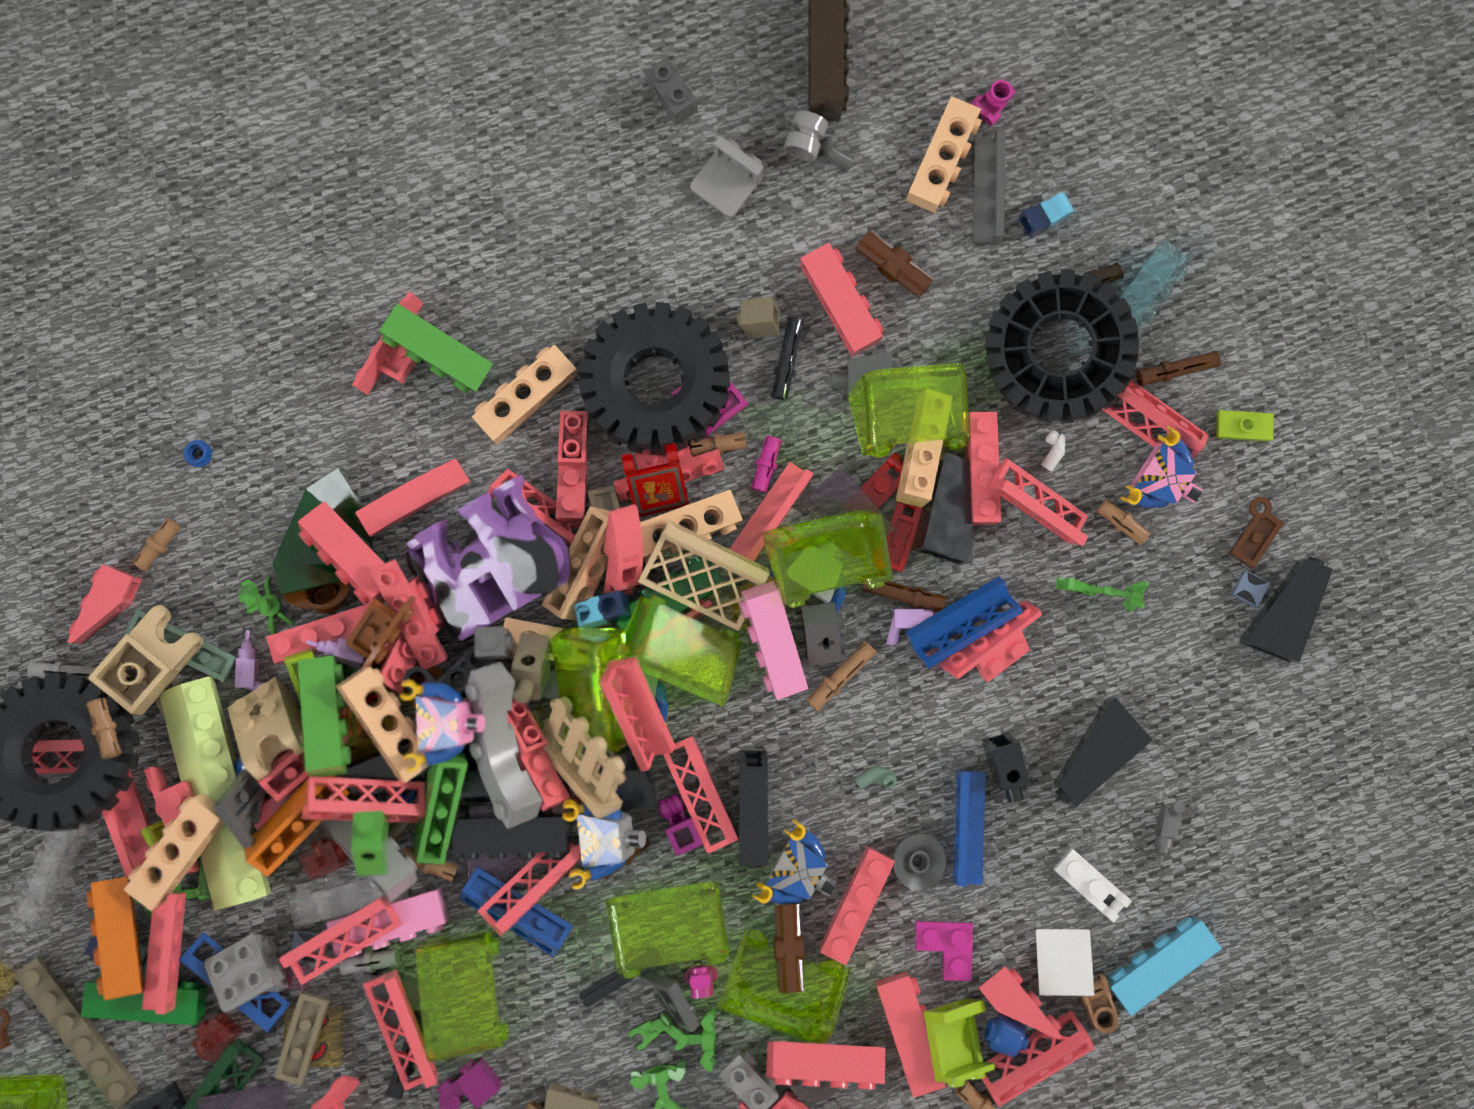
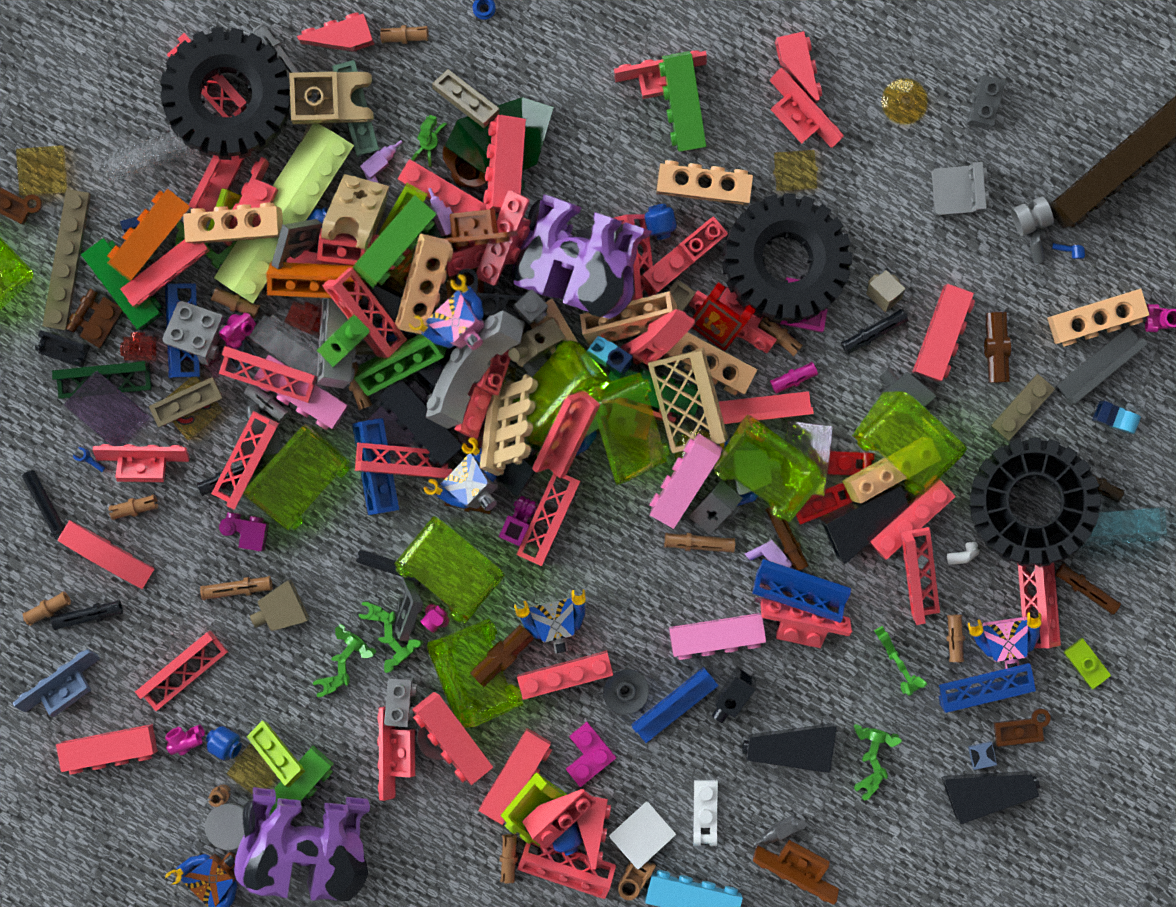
camera: 50 degrees right, 5 degrees up
(104, 728) = (269, 112): medium nougat pin -> none
(162, 1050) = (101, 322): none -> reddish brown plate
(255, 910) = (235, 302): none -> medium nougat pin
(260, 539) = (465, 98): none -> dark tan plate
(279, 931) = (237, 329): none -> dark pink plate
(412, 497) = (576, 171): coral slope -> none
(488, 222) = (796, 61): none -> coral slope
(523, 460) = (660, 221): none -> blue head
(538, 256) = (801, 113): none -> coral bracket
(584, 306) = (795, 170): none -> clear yellow piece
(608, 173) = (896, 109): none -> clear yellow dish
(753, 808) = (568, 558): black slope -> none
(870, 124) = (1078, 251): none -> blue hand
(877, 775) = (657, 620): sand green arm -> none
(939, 732) = (717, 635): none -> bright pink brick
(966, 288) = (1022, 407): none -> dark tan plate
(981, 1030) = (556, 816): none -> coral slope
(1155, 668) = (877, 736): none -> bright green piece
(1197, 535) = (988, 691): none -> blue fence
(1216, 843) = (800, 868): none -> dark orange bracket

